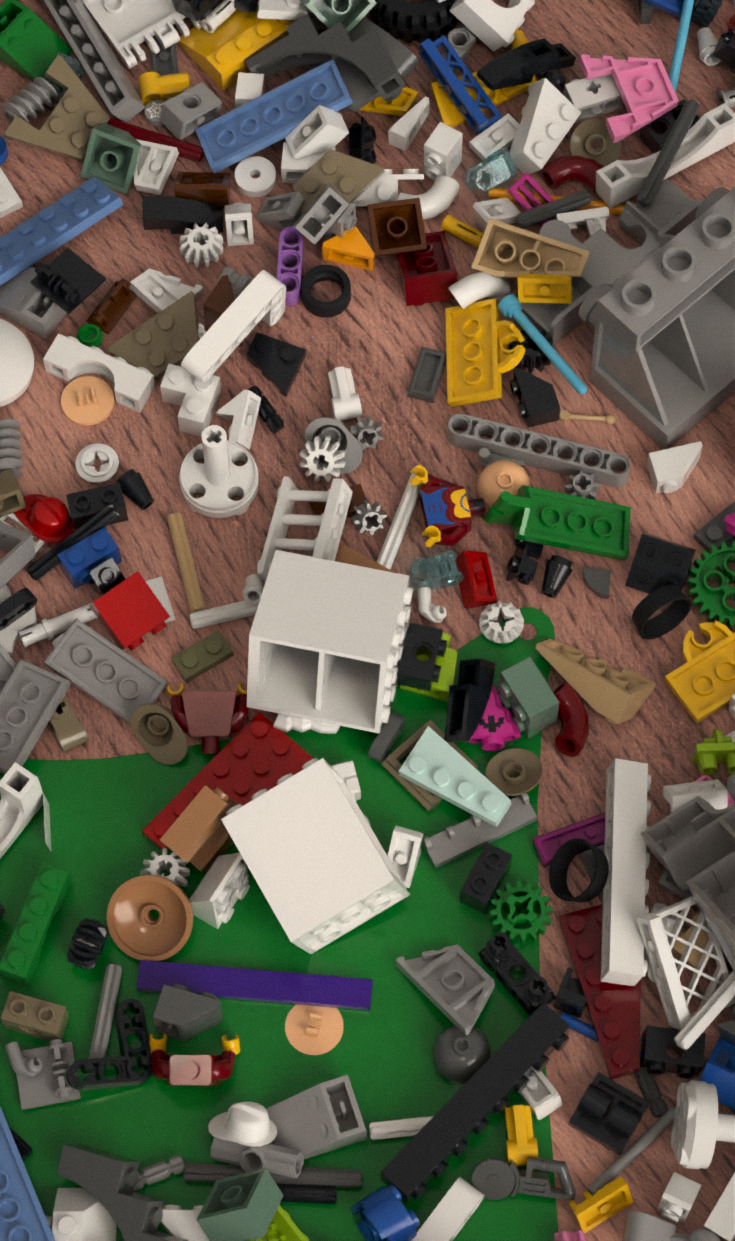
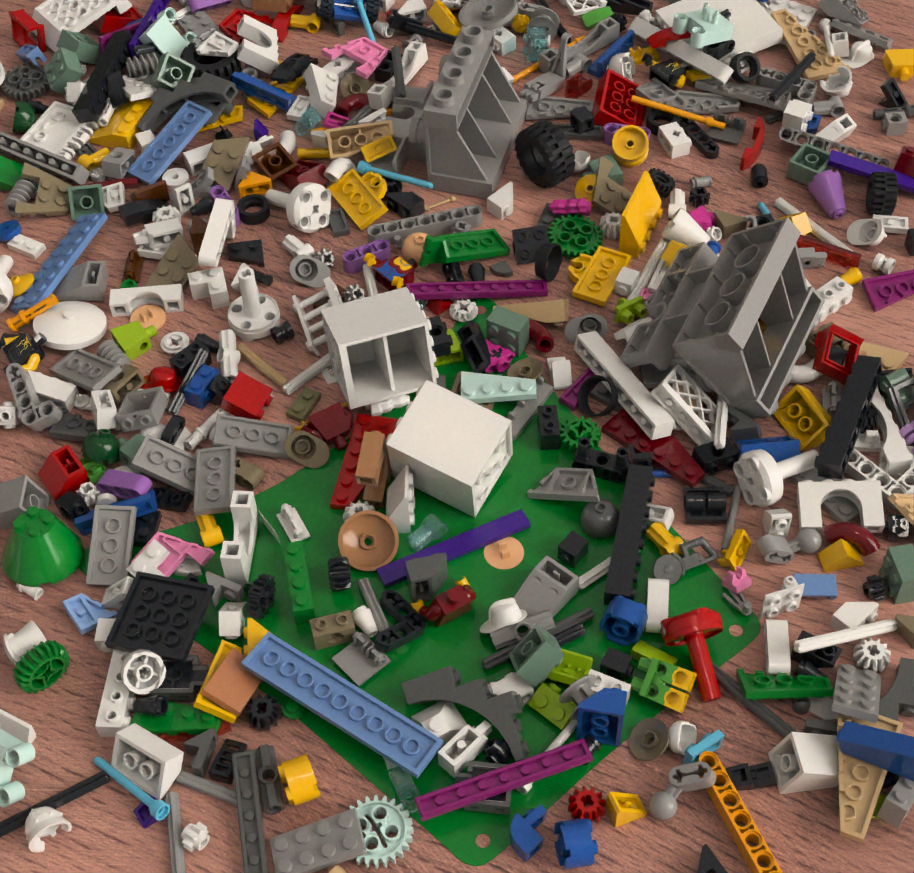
camera: 30 degrees left, 15 degrees down
(20, 1064) = (343, 659): light grey arm -> none
(46, 429) = (133, 338): none -> lime torso
(67, 280) = (100, 258): black hinge -> none
(81, 833) = (292, 523): none -> white hinge
(81, 1027) = (364, 620): none -> white cone
(148, 527) = (228, 355): none -> white piece
(159, 1171) = (470, 670): light grey axle -> none
(173, 273) = (159, 233): none -> white hinge
(240, 526) = (282, 332): none -> black wheel
(241, 943) = (430, 529): none -> clear light blue piece
(253, 589) = (312, 356): white pin -> none
(262, 249) = (202, 207): none -> black cone
(317, 133) = (200, 137): white slope -> none
(321, 214) = (229, 169): light grey brick -> none
(332, 457) = (304, 284): white gear -> none
(389, 335) = (305, 206): none -> white piece
(395, 1078) = (572, 549): none -> black brick
(407, 127) = (247, 122): white slope -> none
(415, 152) = (259, 130): none -> dark purple slope
(439, 452) = (354, 258): none -> medium lavender beam
(442, 152) = (275, 120): white brick -> none
(536, 601) = (478, 289): none -> magenta tile
(561, 797) = (559, 372): none -> white slope
(644, 746) = (585, 323): none -> light grey piece

